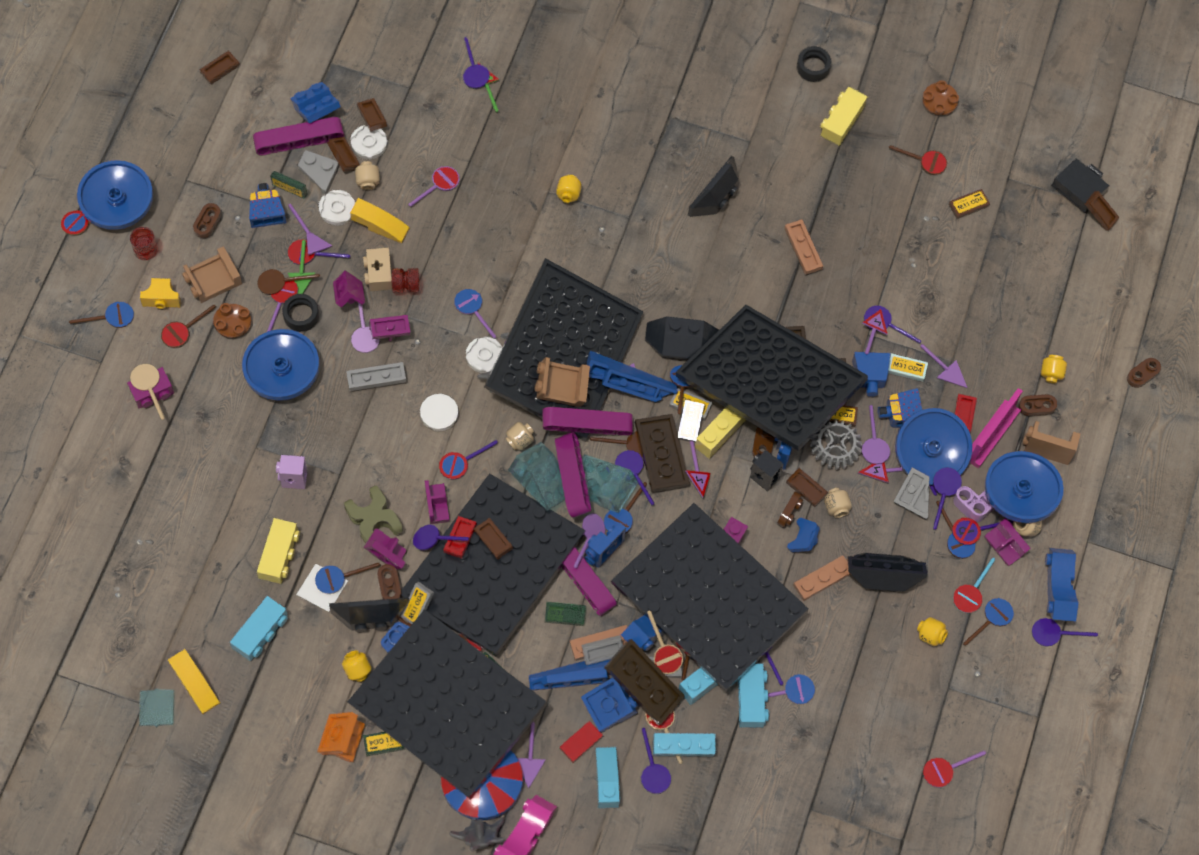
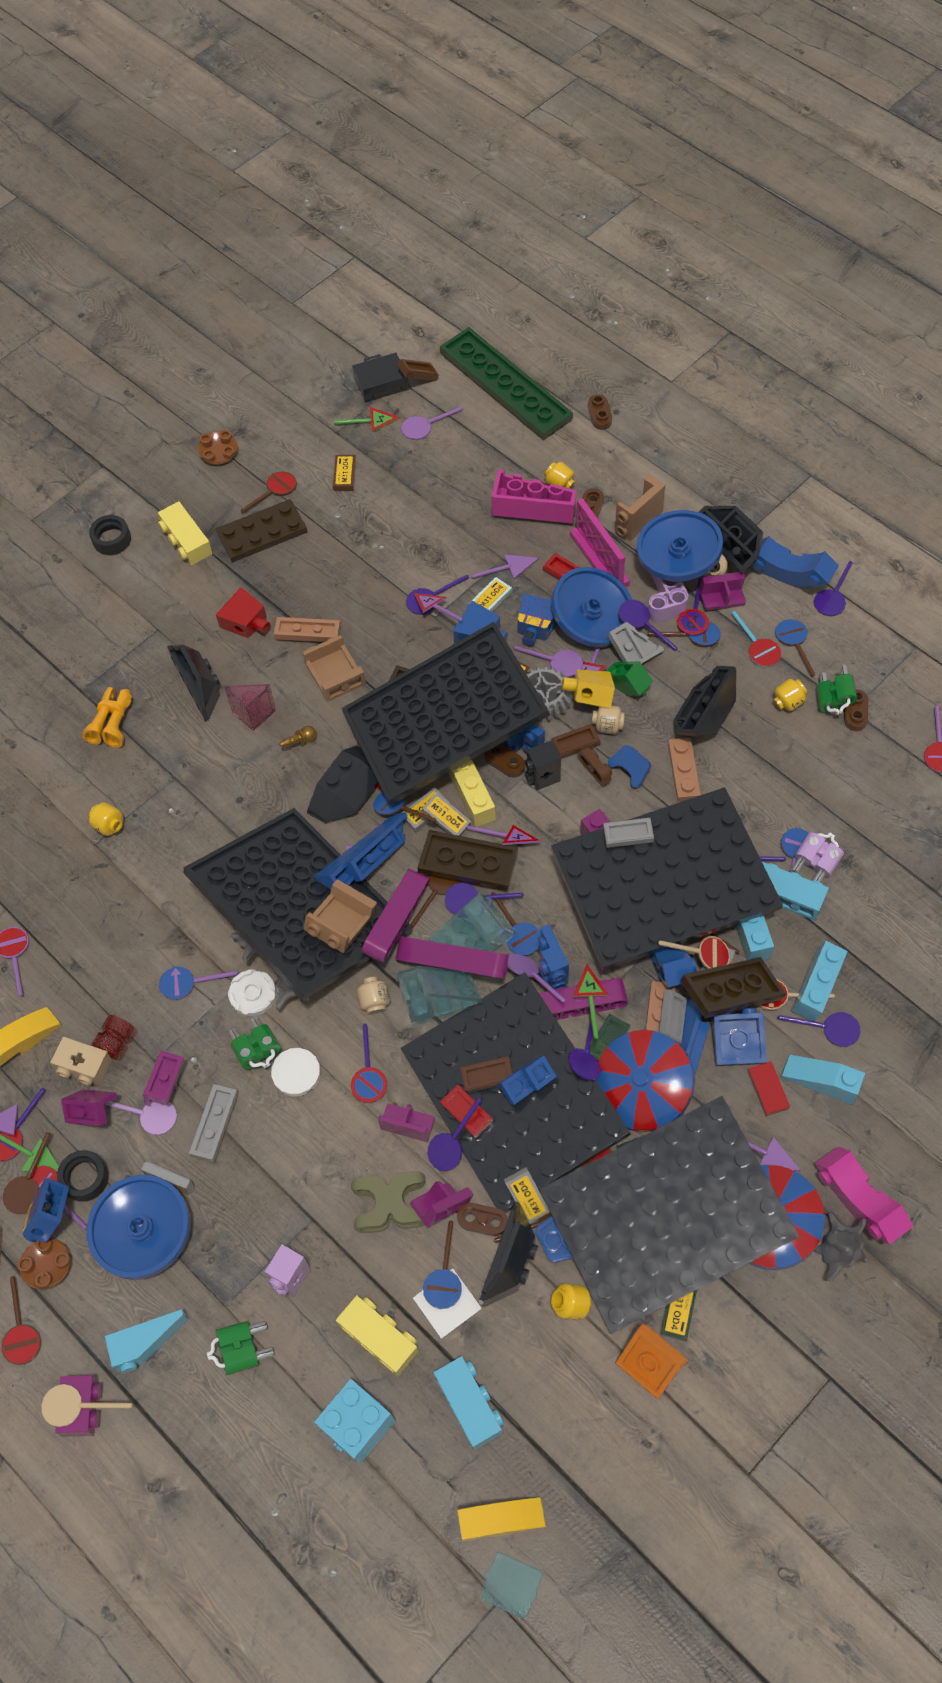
camera: 55 degrees left, 5 degrees down
(207, 405) = (139, 1342): none -> medium azure slope
(214, 562) = (355, 1421): none -> medium azure brick
(231, 466) = (237, 1347): none -> green piece
(258, 302) = (42, 1223): none -> blue torso
(323, 366) = (179, 1182): none -> light grey tile
(444, 376) = (256, 1046): none -> green piece
(499, 565) = (527, 1079): none -> blue slope
(532, 600) = (583, 1062): none -> dark purple piece
(542, 649) = (646, 1079): none -> dish
(595, 580) = (590, 987): none -> piece
(666, 144) = (111, 734): none -> light orange piece
(711, 291) = (305, 735): none -> pearl gold bar
(712, 239) = (251, 703): none -> clear pink slope
(729, 551) = (628, 832): none -> light grey tile
(779, 282) = (333, 668): none -> medium nougat panel
(791, 195) = (243, 615): none -> red torso
(794, 706) = (818, 854): none -> lavender piece
(855, 475) = (591, 687): none -> yellow torso
(879, 169) = (261, 530): none -> dark brown plate
(883, 501) = (630, 677): none -> green slope
(949, 690) = (859, 709): none -> reddish brown plate
(953, 666) = (836, 693): none -> green piece
(1015, 354) = (532, 499): none -> dark pink wedge
(1038, 205) = (378, 419): none -> piece
(1048, 238) = (419, 427): none -> medium lavender piece
(1063, 526) = (740, 534): none -> black wedge
(1131, 285) = (506, 382): none -> dark green plate

